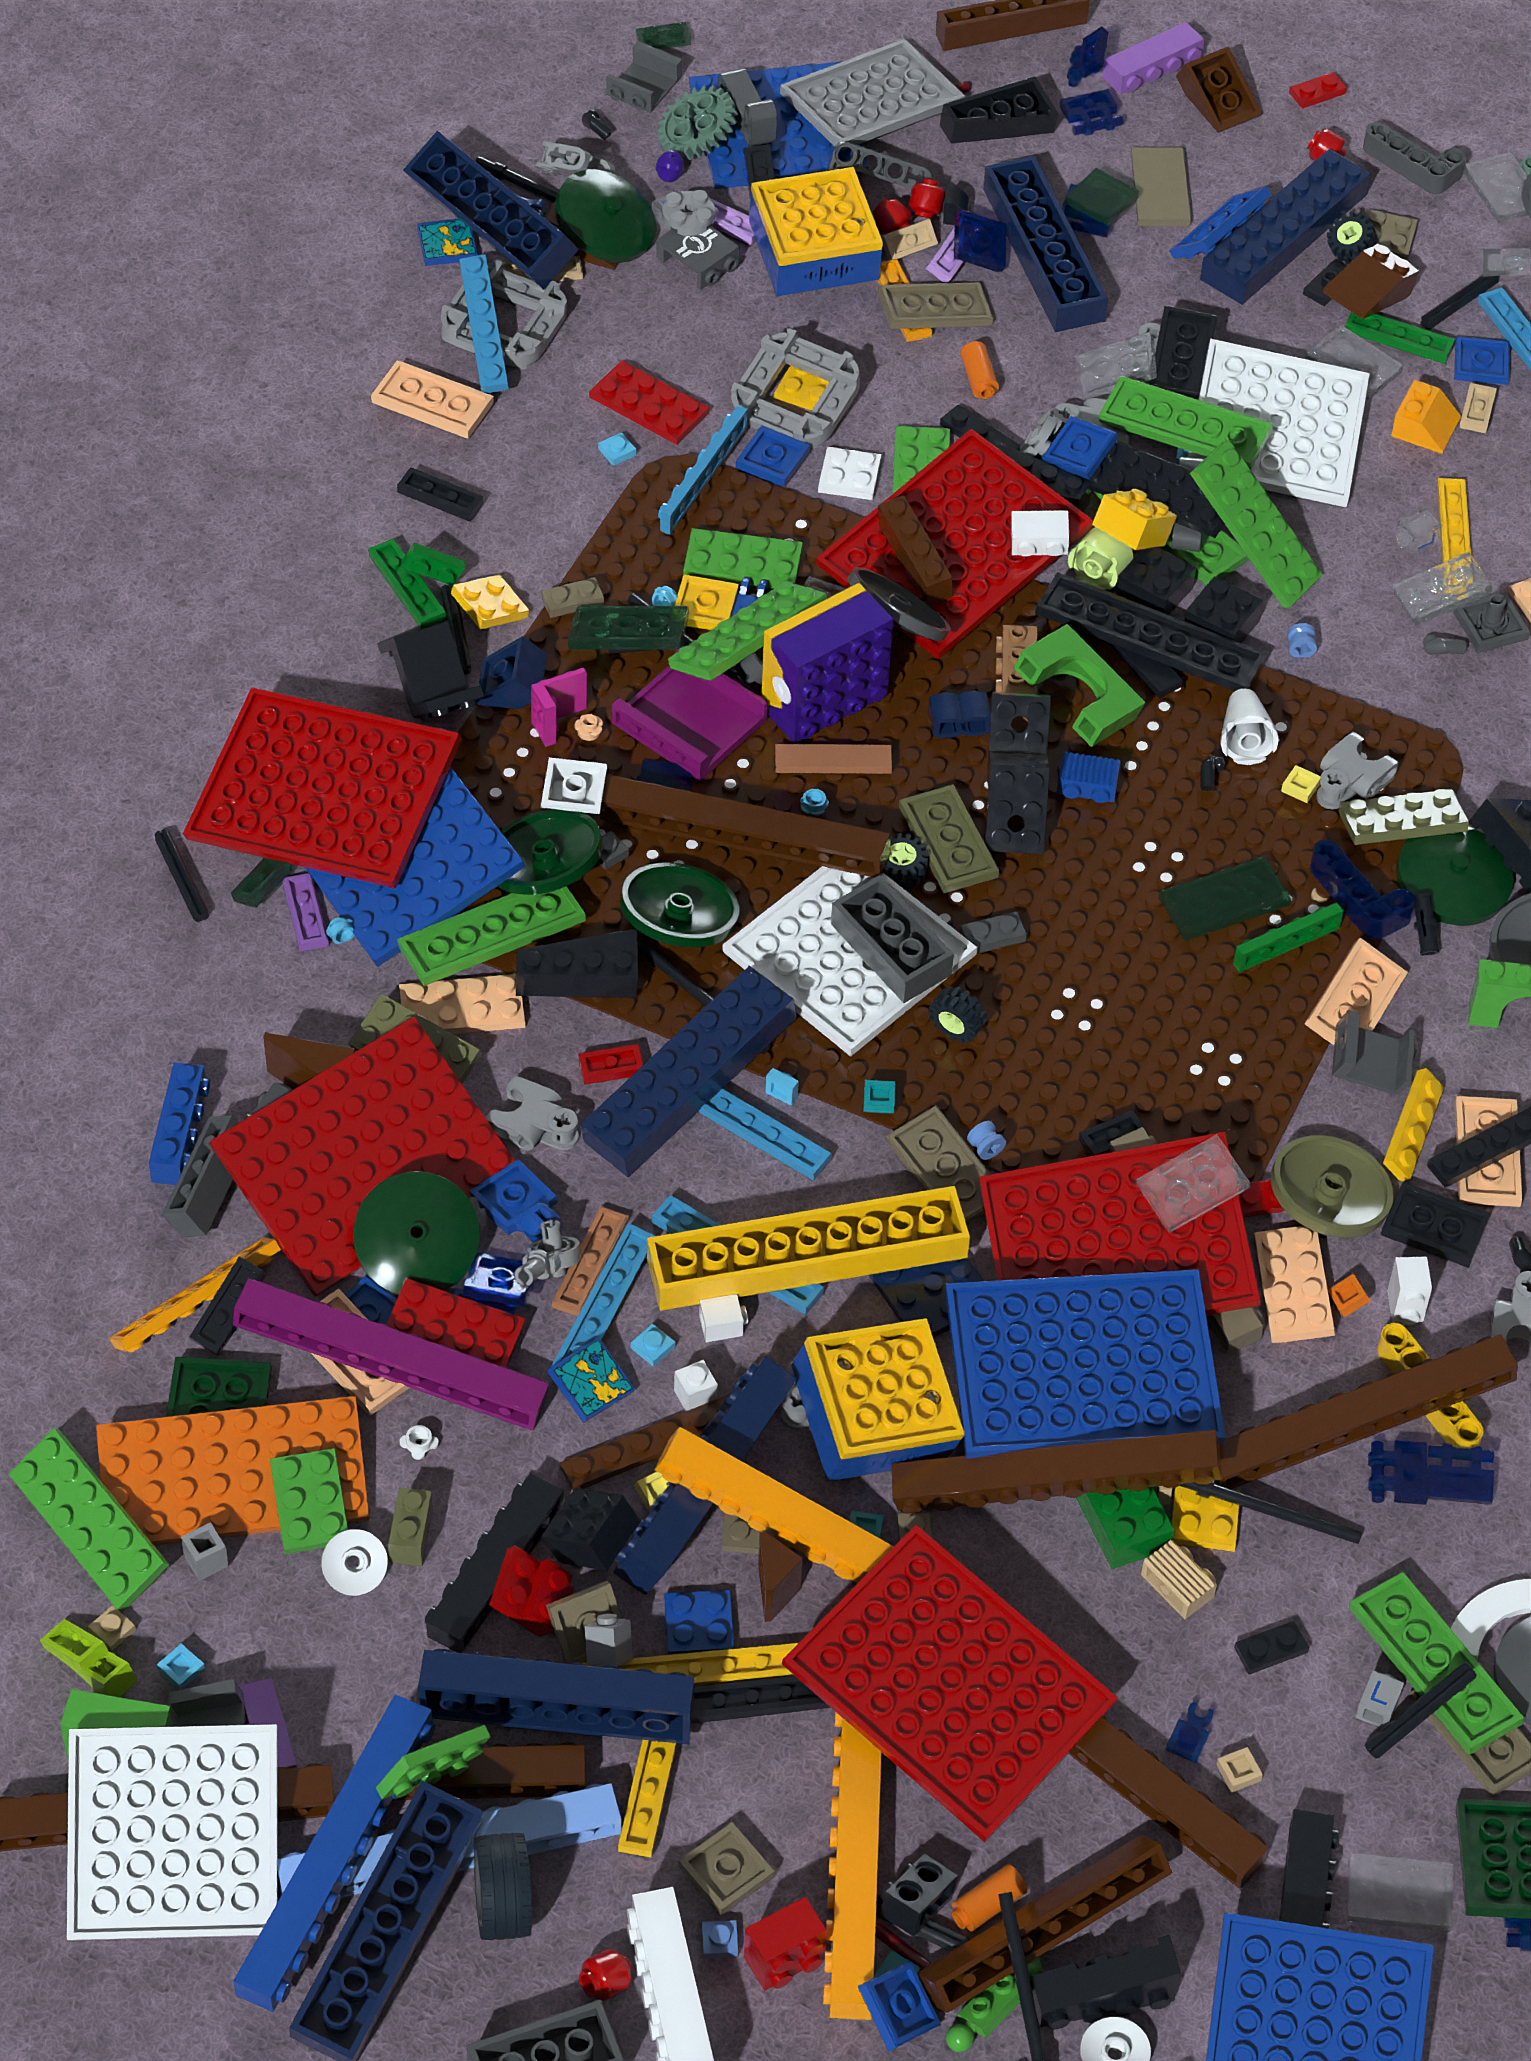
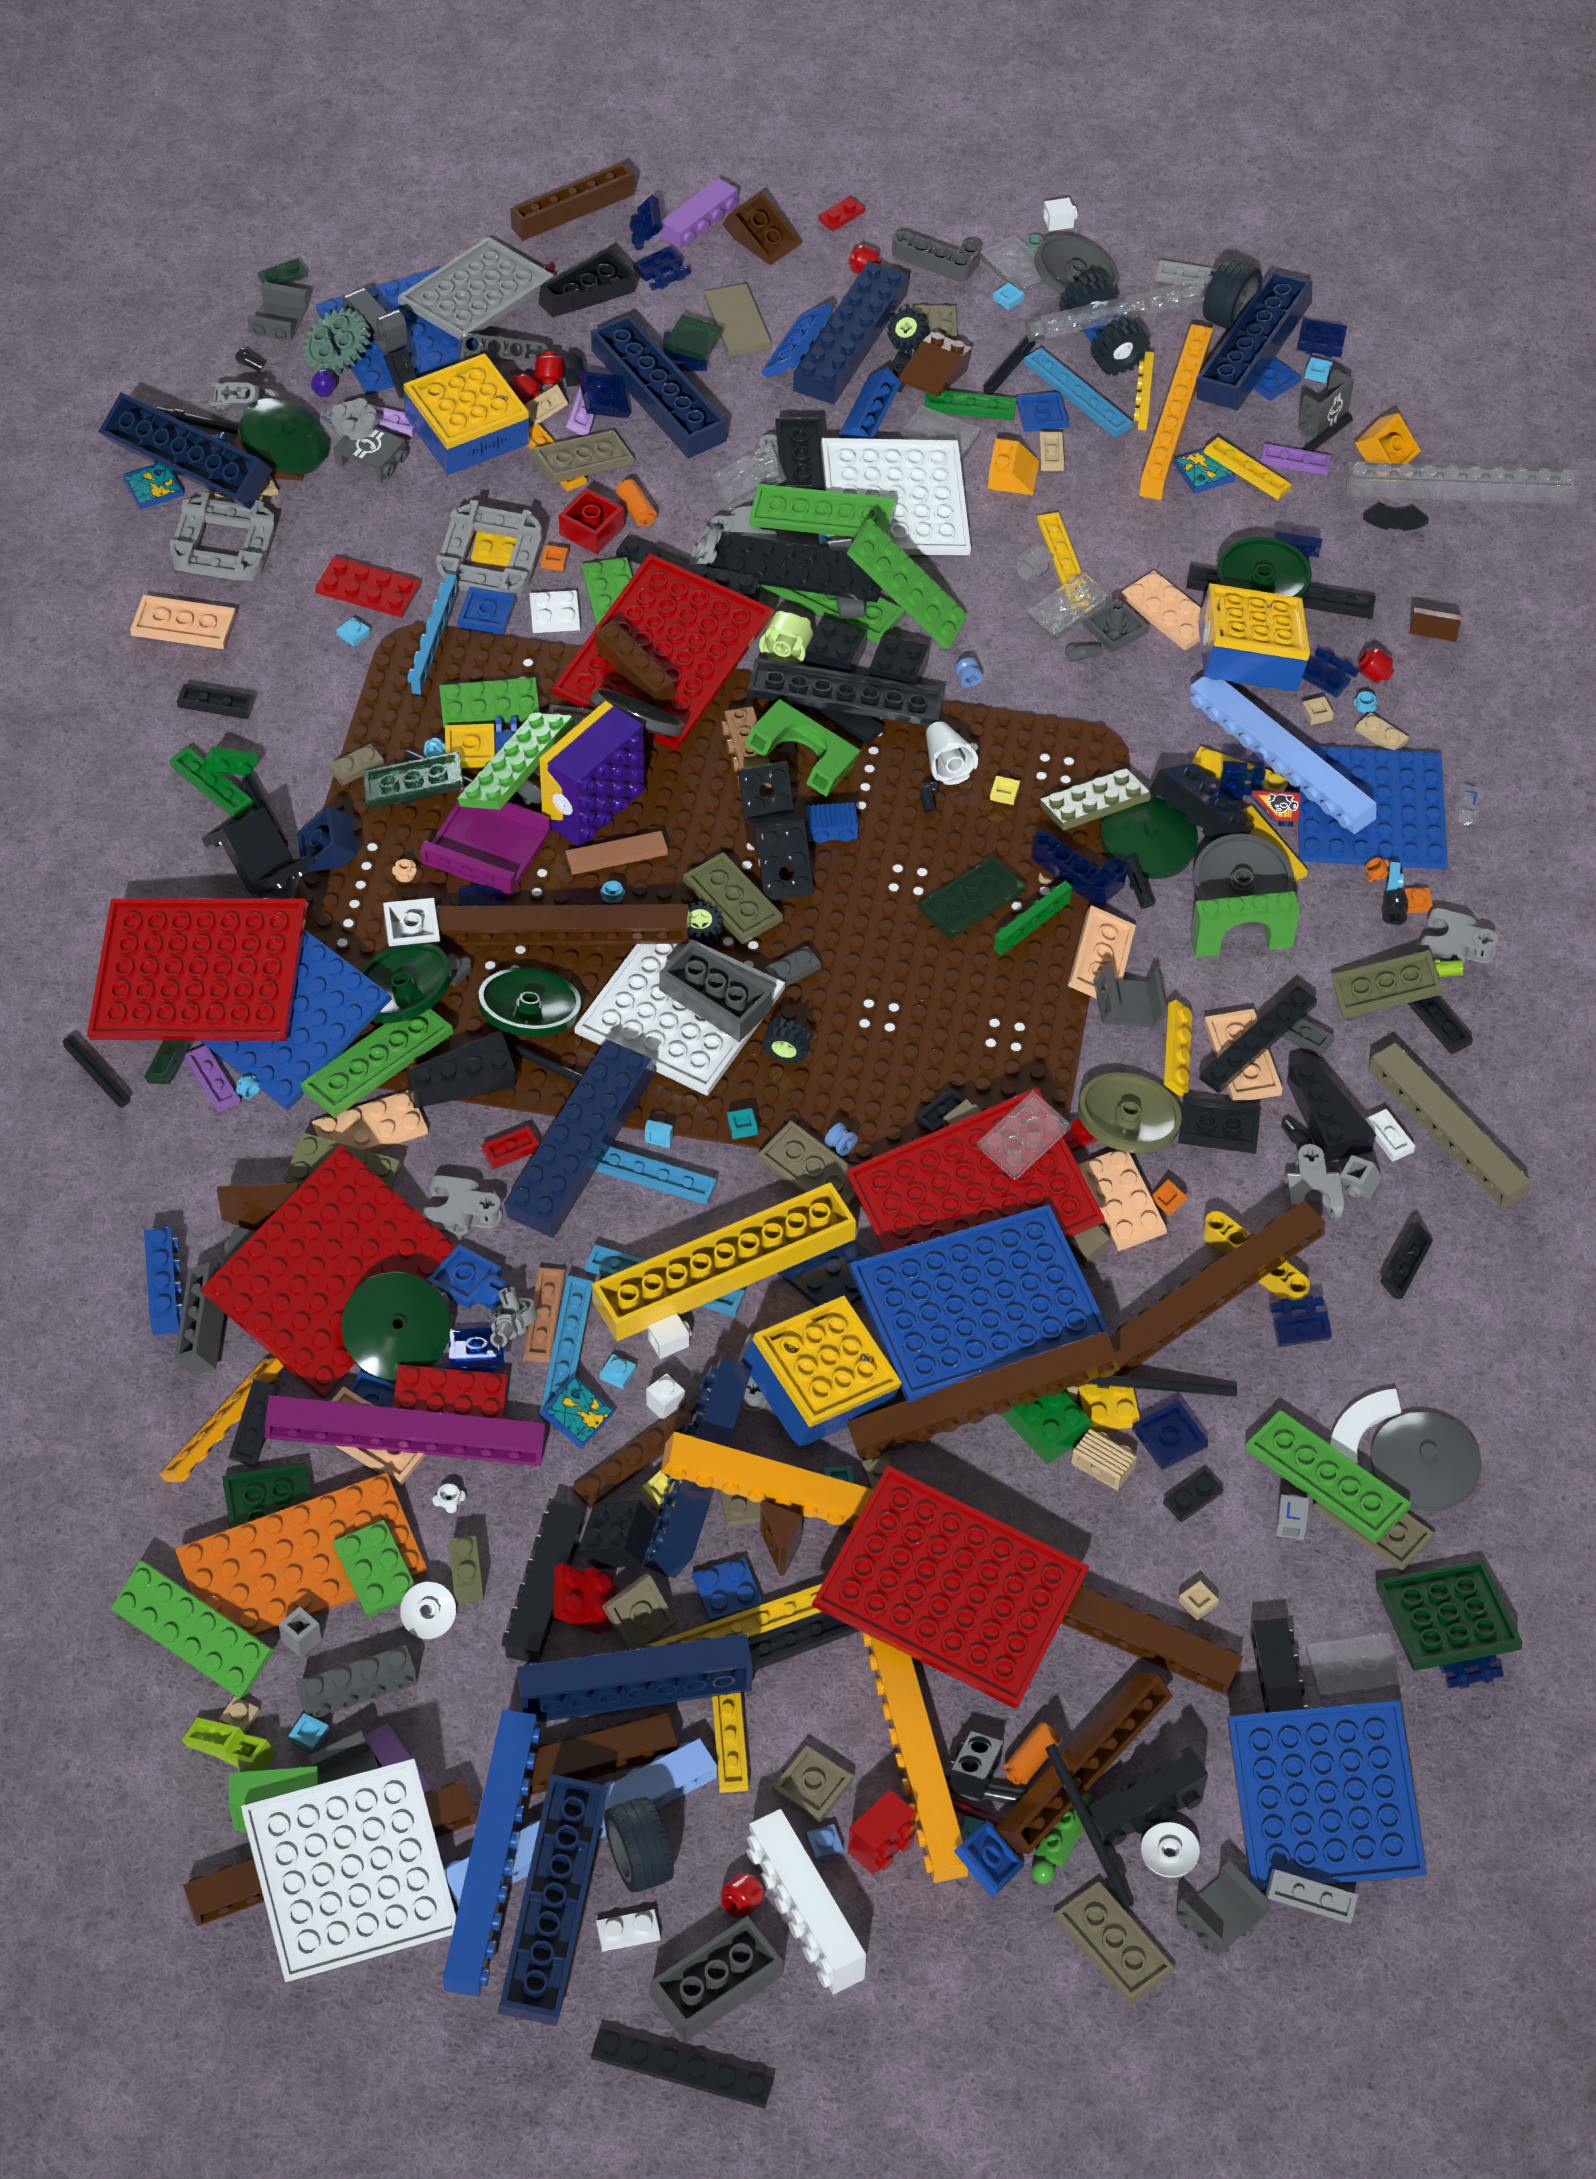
camera: 15 degrees left, 0 degrees up
(249, 1624) = (356, 1682): none -> dark grey brick
(433, 1762) = (554, 1756): bright green plate -> none
(466, 1981) = (628, 1930): none -> white plate
(483, 324) = (209, 549): dark azure plate -> none
(489, 601) = (287, 783): yellow plate -> none
(556, 699) = (371, 853): dark pink bracket -> none
(608, 1641) = (661, 1622): light grey brick -> none
(867, 413) = (554, 558): none -> orange plate
(921, 379) = (591, 521): none -> red brick
(959, 714) = (710, 793): dark blue brick -> none
(1040, 533) = (733, 628): white brick -> none
(1080, 447) = (742, 550): blue tile -> none
(1135, 519) = (807, 600): yellow brick -> none
(1190, 1737) = (1150, 1583): clear blue plate -> none
(1265, 1570) = (1170, 1435): none -> clear blue plate
(1282, 314) = (871, 405): none -> blue brick
(1350, 774) = (1042, 773): light grey piece -> none
(1409, 1290) = (1217, 1182): white brick -> none
(1409, 1472) = (1259, 1328): clear blue plate -> none
(1420, 1710) = (1328, 1517): black axle -> none
(1482, 221) = (1008, 296): none -> medium azure plate

